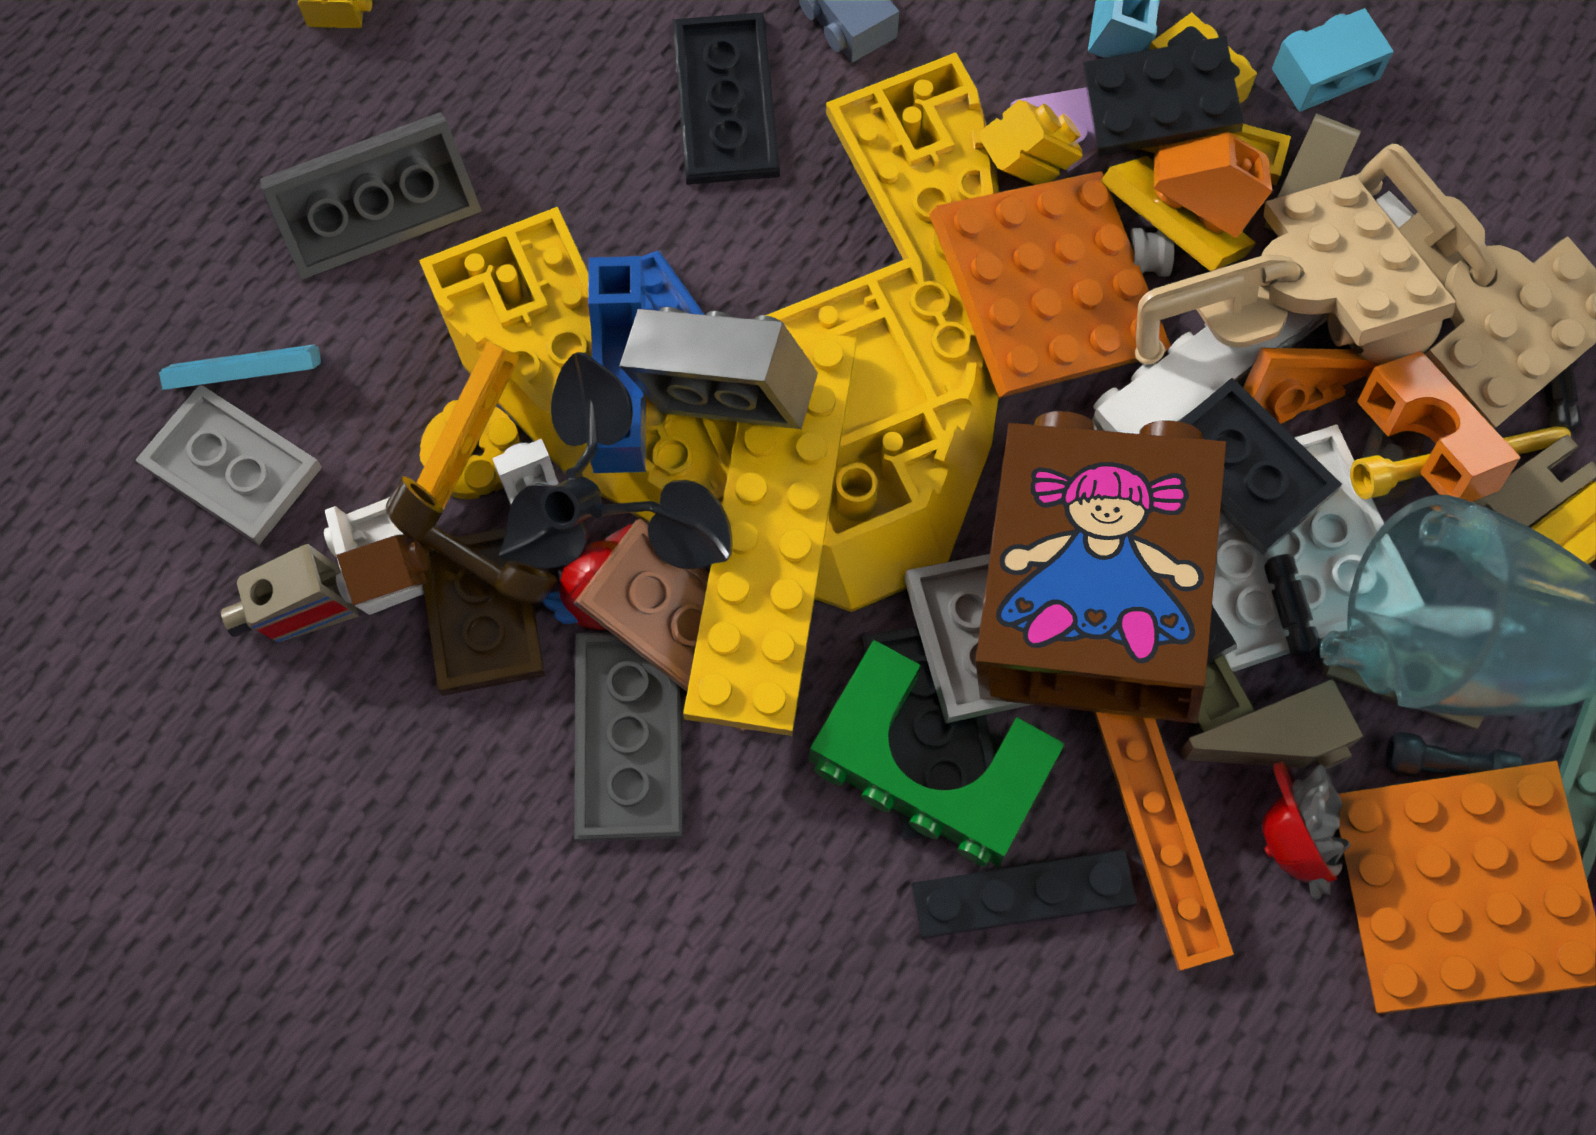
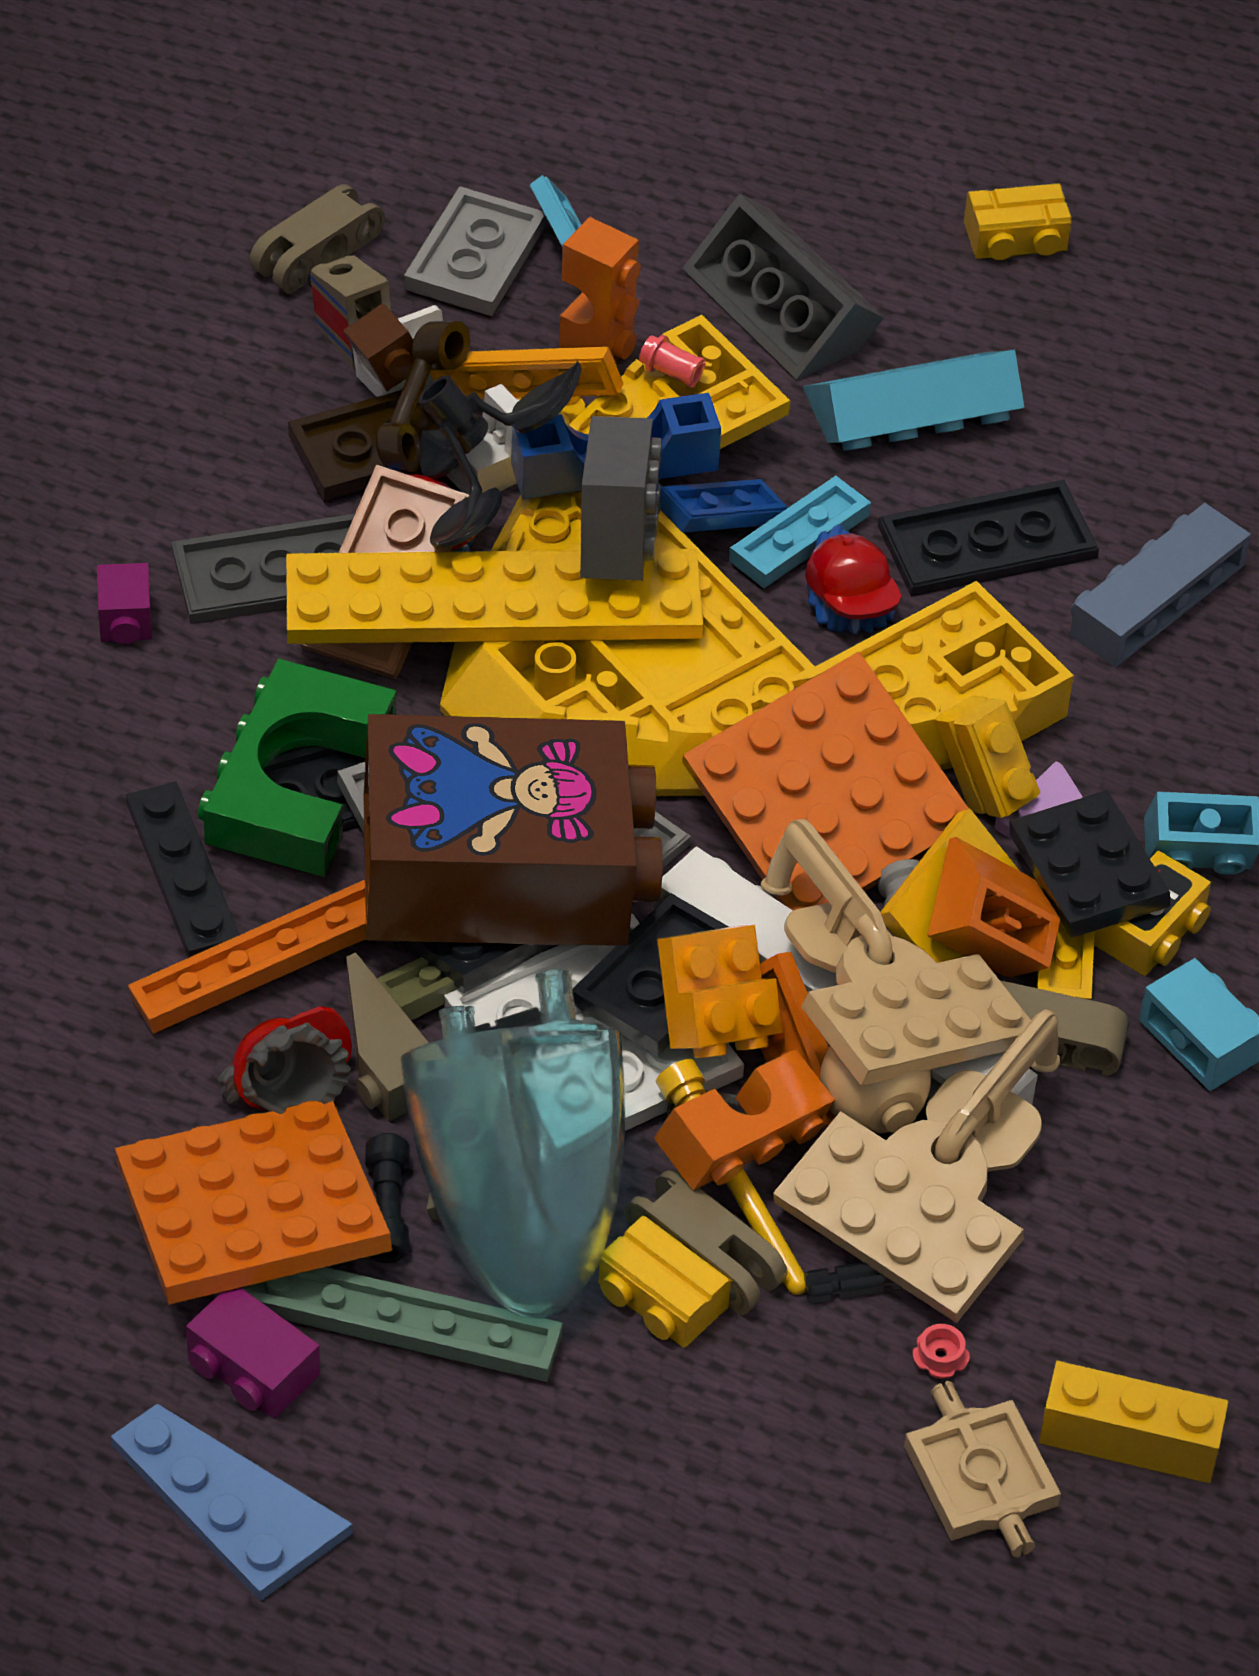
camera: 75 degrees right, 20 degrees down
(167, 616) = (315, 236): none -> dark tan piece
(371, 341) = (606, 270): none -> orange arch
(491, 295) = (671, 360): none -> coral pin
(541, 111) = (917, 397): none -> medium azure slope
(662, 900) = (124, 602): none -> magenta brick
(692, 246) = (794, 532): none -> medium azure plate
(775, 215) = (850, 583): none -> red hair
(1303, 418) = (717, 991): none -> light orange plate

